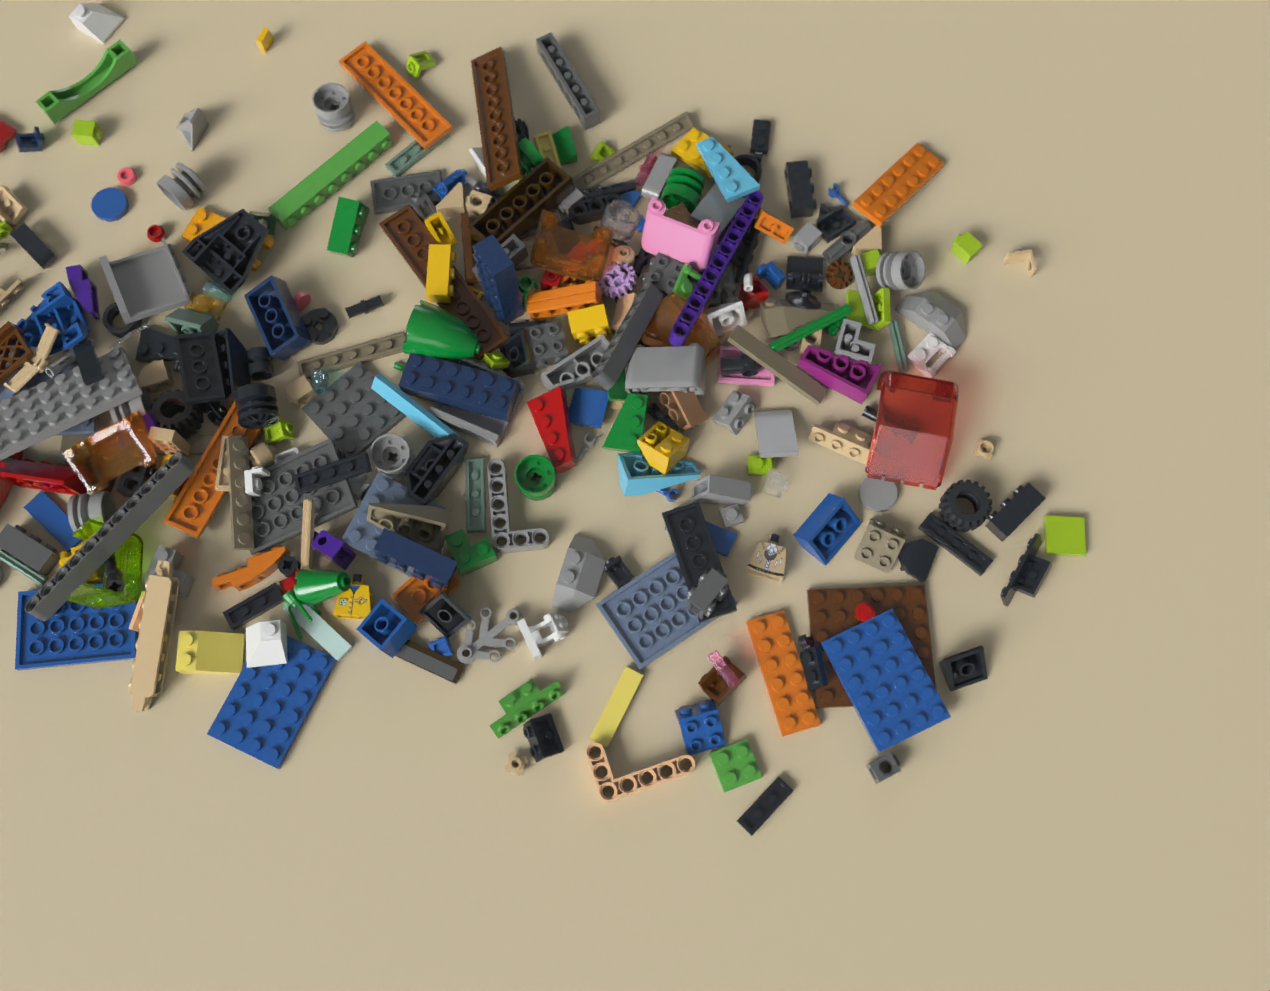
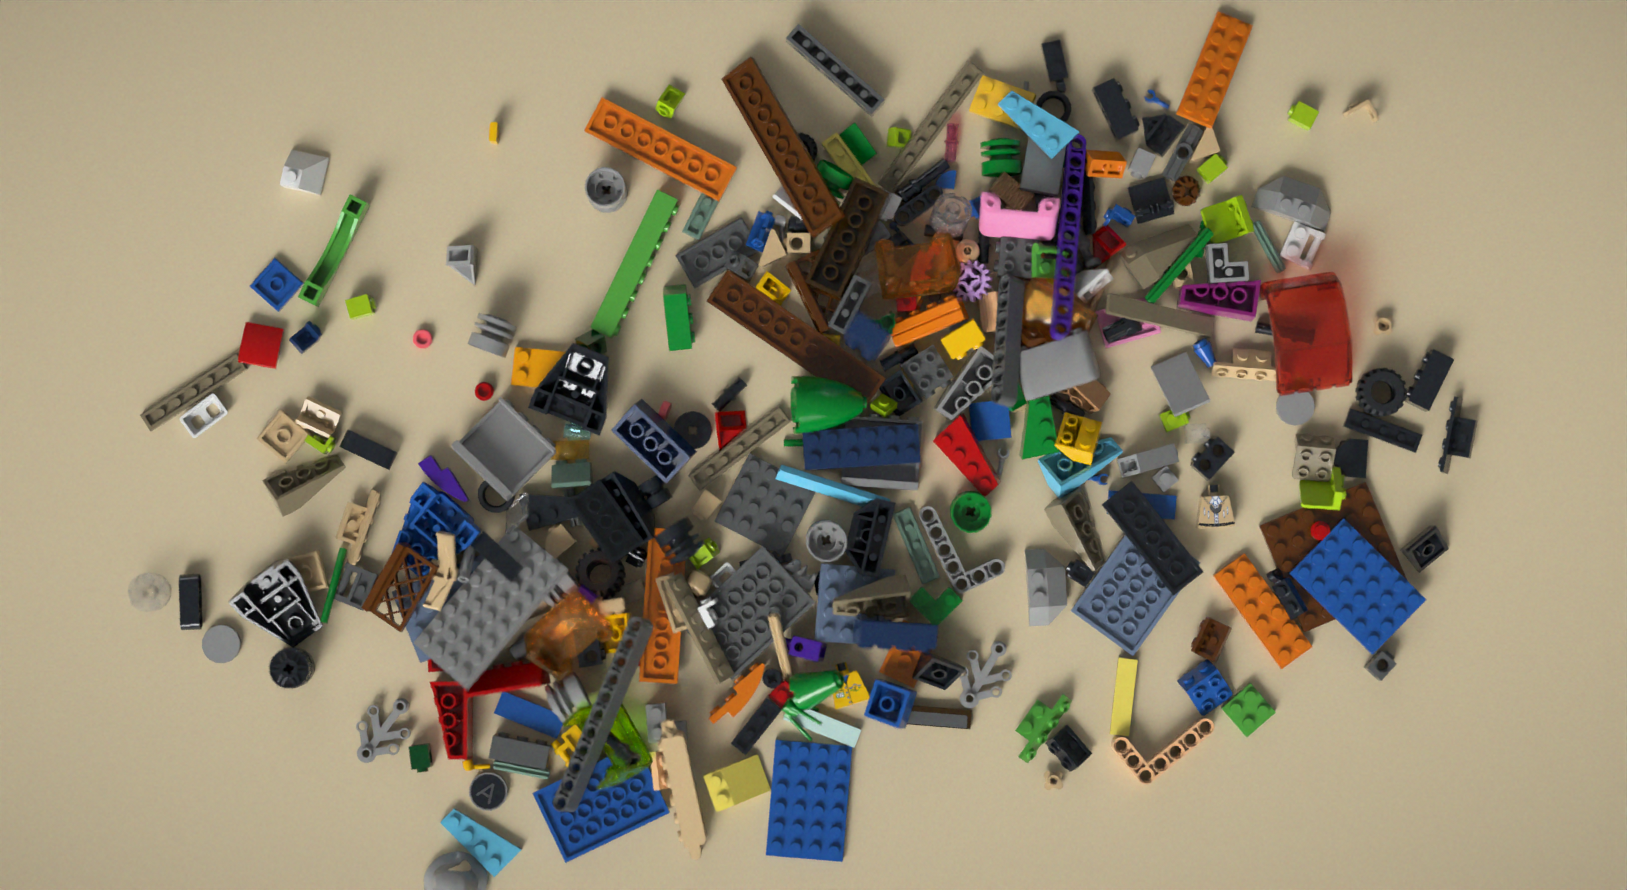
camera: 20 degrees left, 15 degrees up
(26, 94) = (276, 284): none -> blue tile
(109, 204) = (421, 376): blue tile -> none
(266, 644) = (785, 758): white slope -> none
(320, 382) = (722, 490): clear light blue cone -> none
(332, 473) = (780, 579): black tile -> none
(350, 330) = (729, 425): none -> red slope
(440, 273) = (794, 336): yellow brick -> none
(442, 646) = (943, 700): blue tile -> none
(557, 624) = (1043, 642): white tile -> none
(630, 523) = (1072, 521): none -> dark tan wedge
(658, 176) = (969, 146): light grey beam -> none
(710, 589) = (1175, 567): dark grey brick -> none
(723, 669) = (1210, 631): clear pink axle -> none
(735, 411) = (1132, 373): light grey bracket -> none
(749, 280) = (1100, 234): white arm -> none
(765, 805) = (1286, 735): black tile -> none
(785, 514) = (1215, 461): none -> black brick
(803, 299) = (1160, 234): black dish -> none
(809, 414) = (1205, 352): none -> blue cone
(827, 528) = (1259, 460): blue slope -> none
(864, 289) = (1217, 202): light grey axle -> none
(878, 580) = (1323, 494): none -> lime bracket
(900, 270) = (1247, 172): light grey wheel -> none
(1064, 535) = (1481, 385): lime tile -> none

